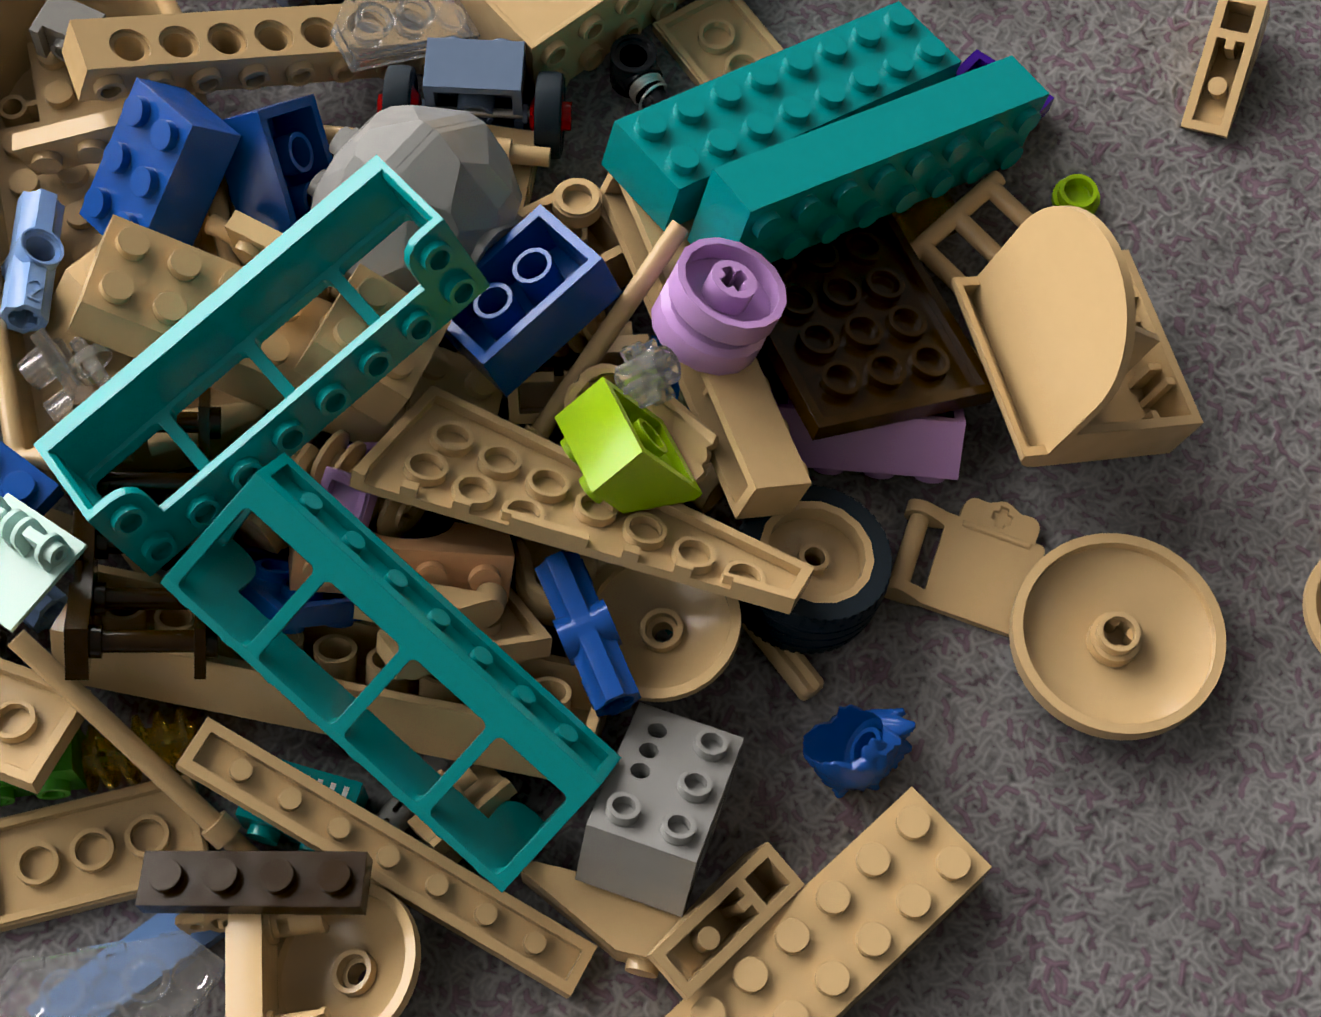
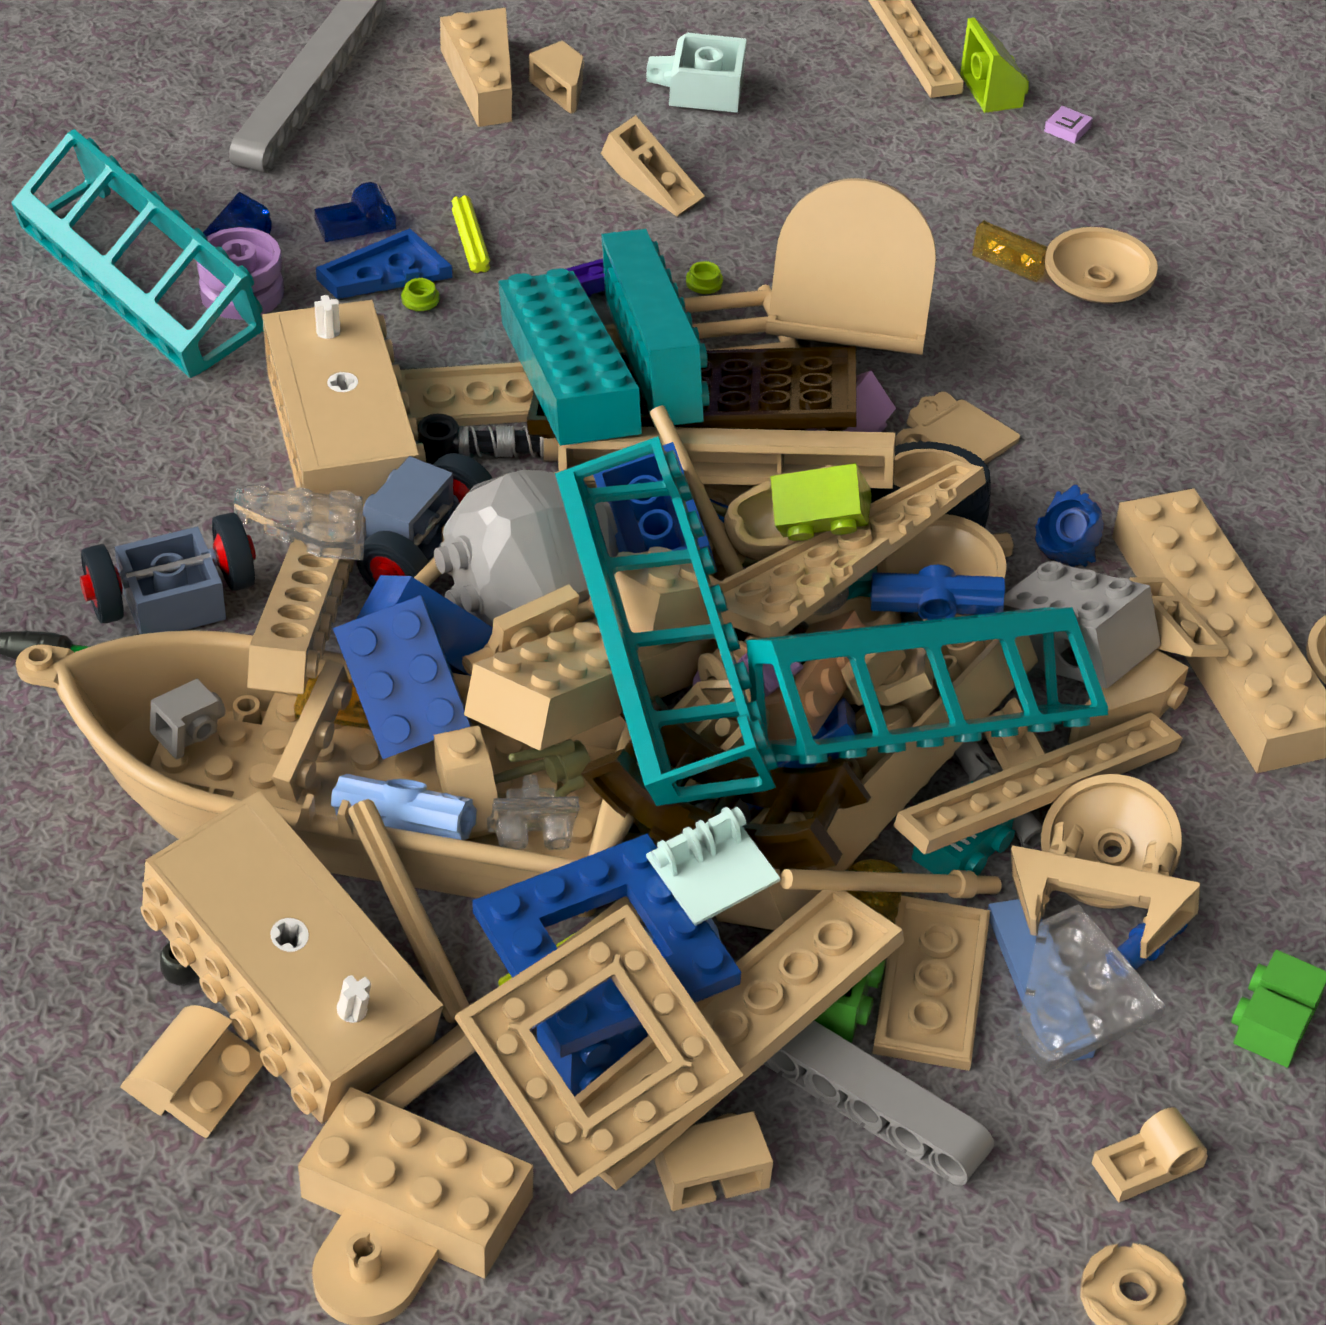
camera: 65 degrees left, 20 degrees down
(255, 882) = (1034, 848): dark brown plate -> none
(648, 373) = (766, 463): clear gear -> none
(718, 306) = (740, 411): lavender wheel -> none
(1117, 636) = (1054, 381): tan dish -> none

